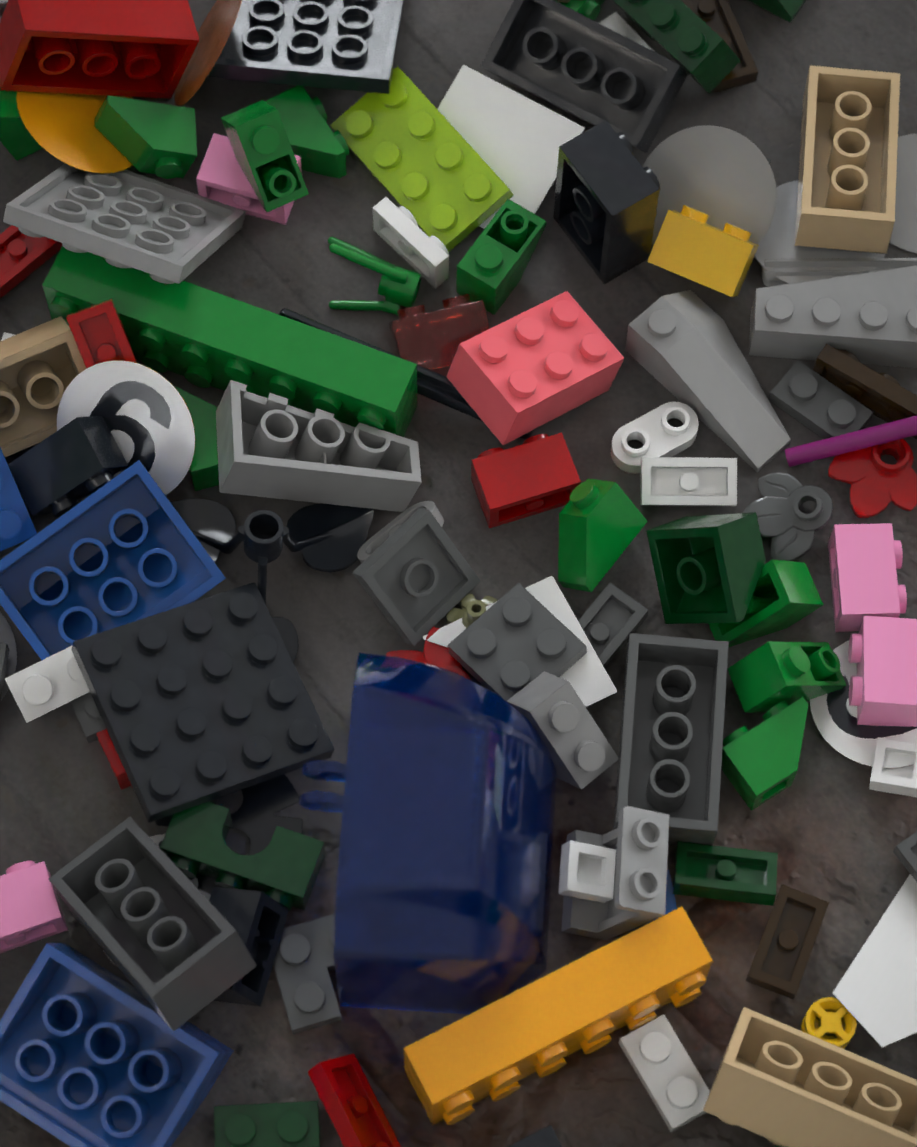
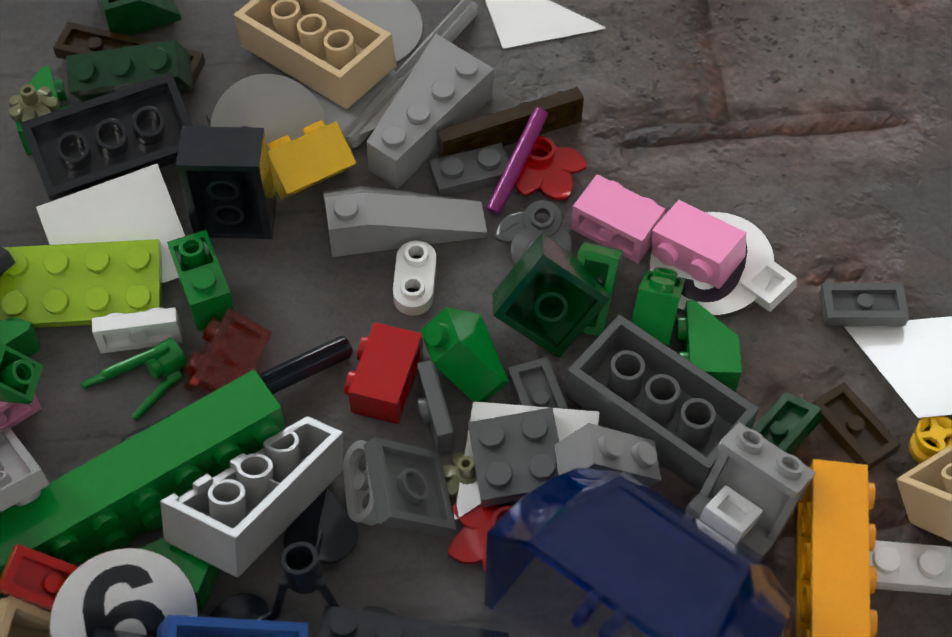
camera: 55 degrees left, 10 degrees down
(519, 545) = (433, 408): none -> dark grey plate
(534, 367) = (309, 308): coral brick -> none
(688, 481) = (468, 274): white plate -> none

